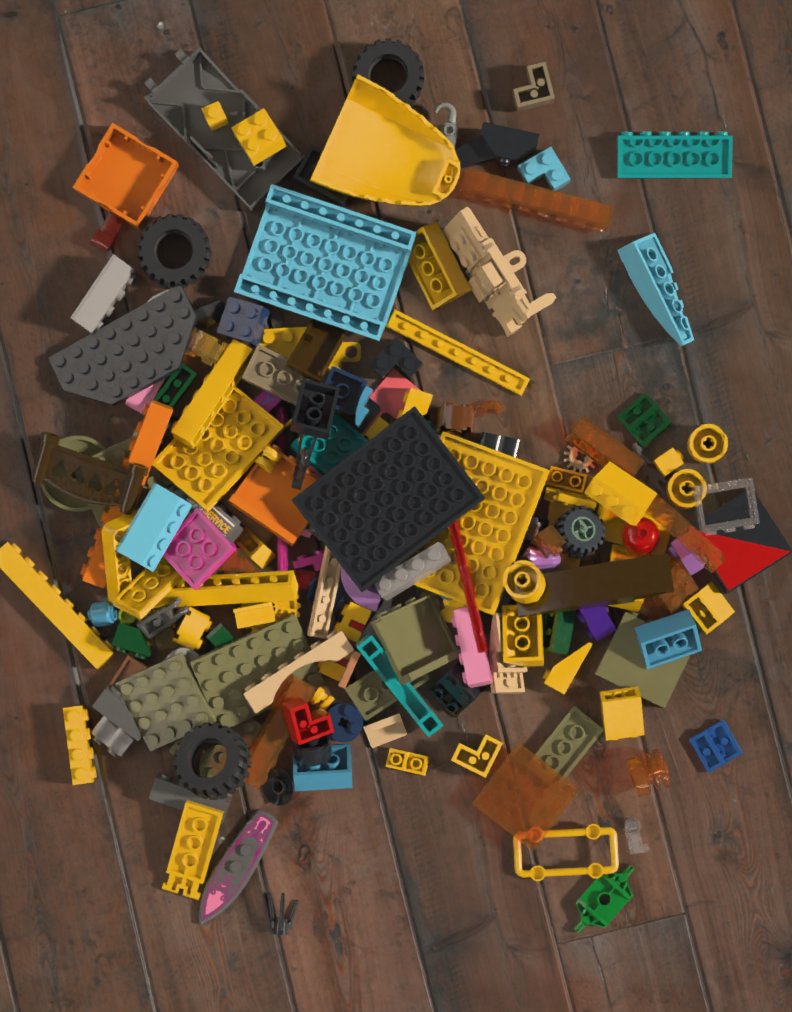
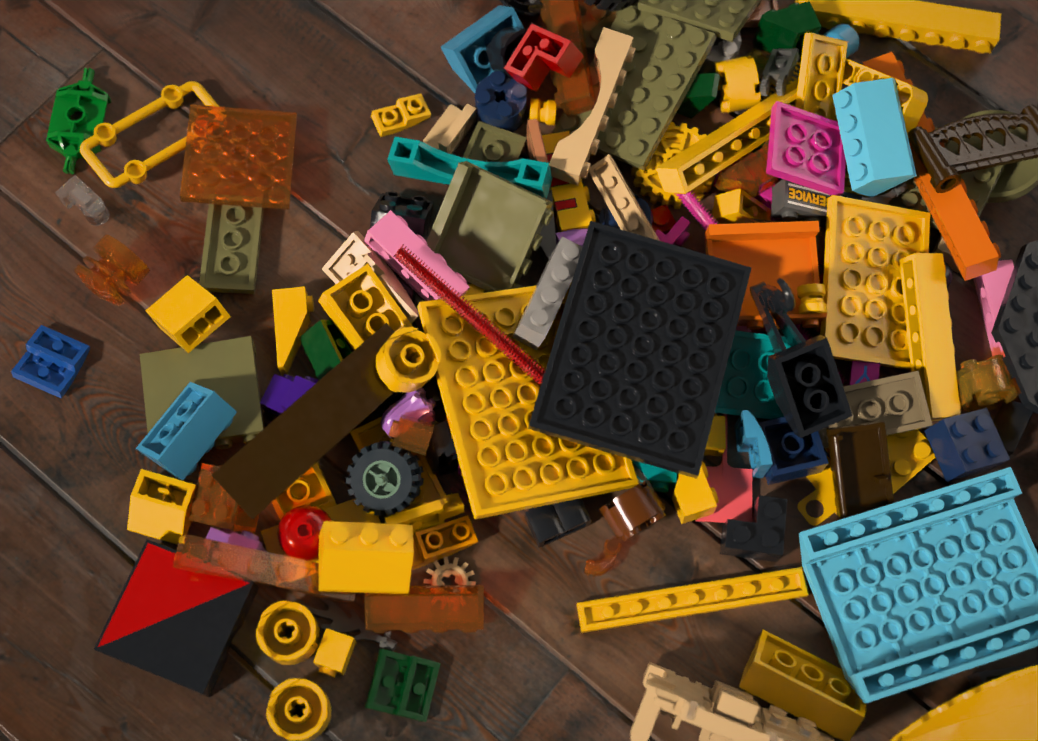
camera: 140 degrees right, 15 degrees down
(176, 387) = (972, 314): dark green brick -> none
(254, 615) = (685, 134): yellow panel -> none
(480, 760) = (323, 159): yellow brick -> none
(729, 526) = (195, 621): clear window -> none

